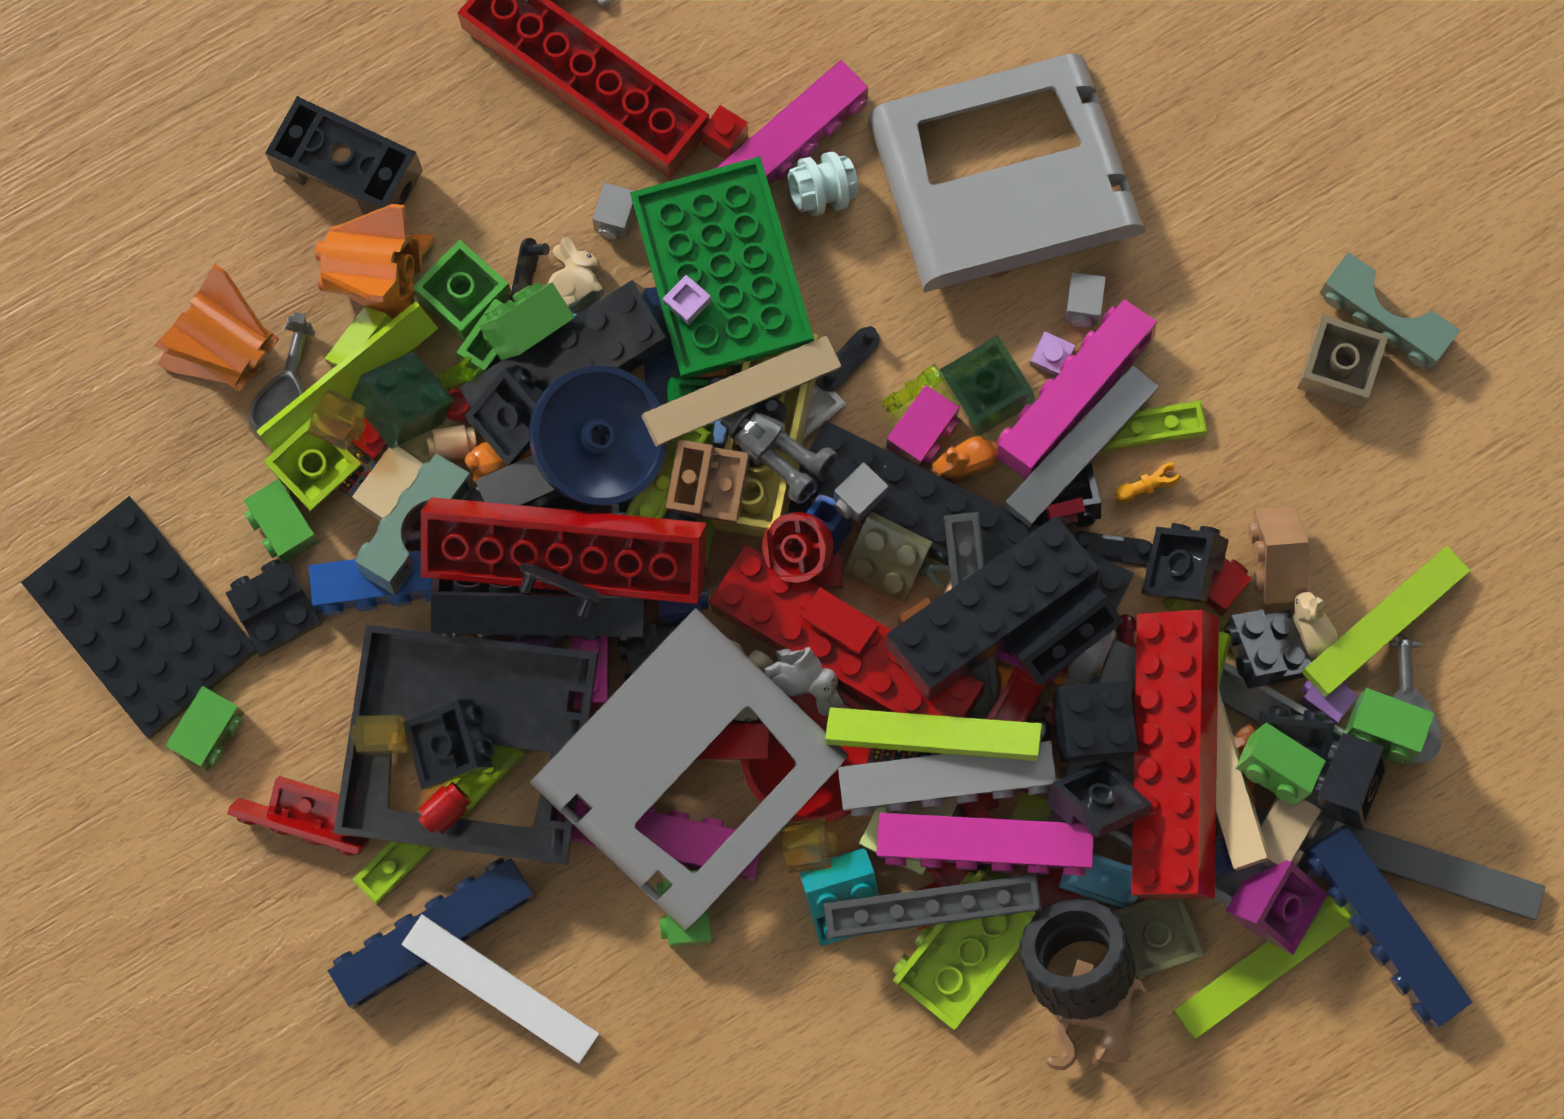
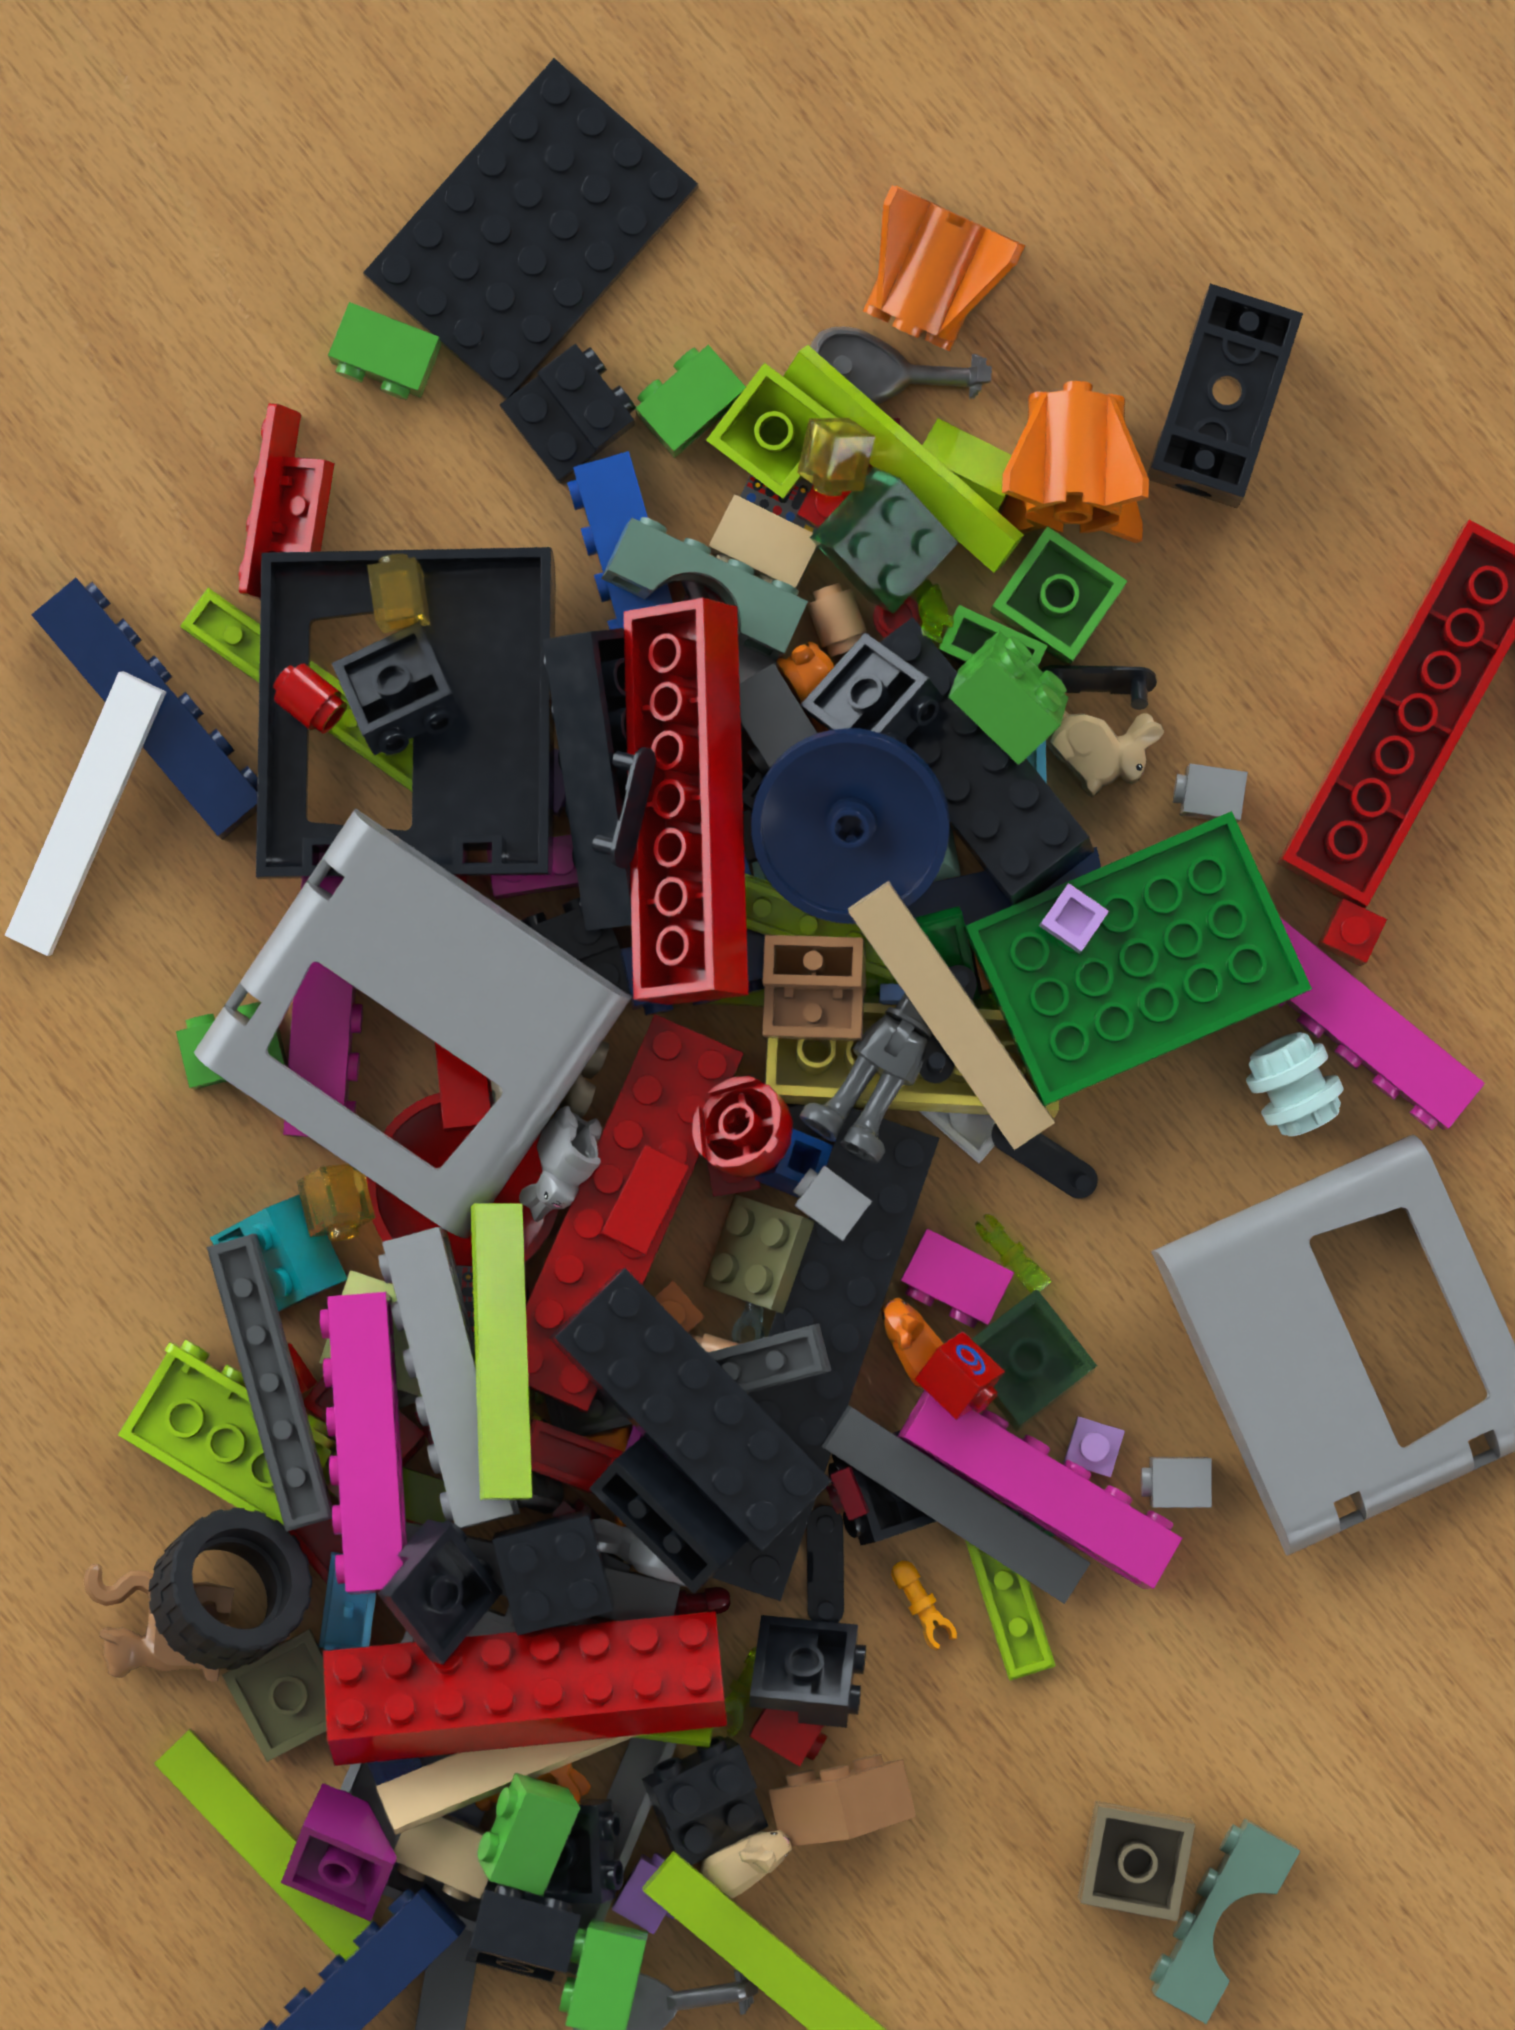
camera: 80 degrees right, 10 degrees up
(994, 423) = (960, 1376): none -> red brick

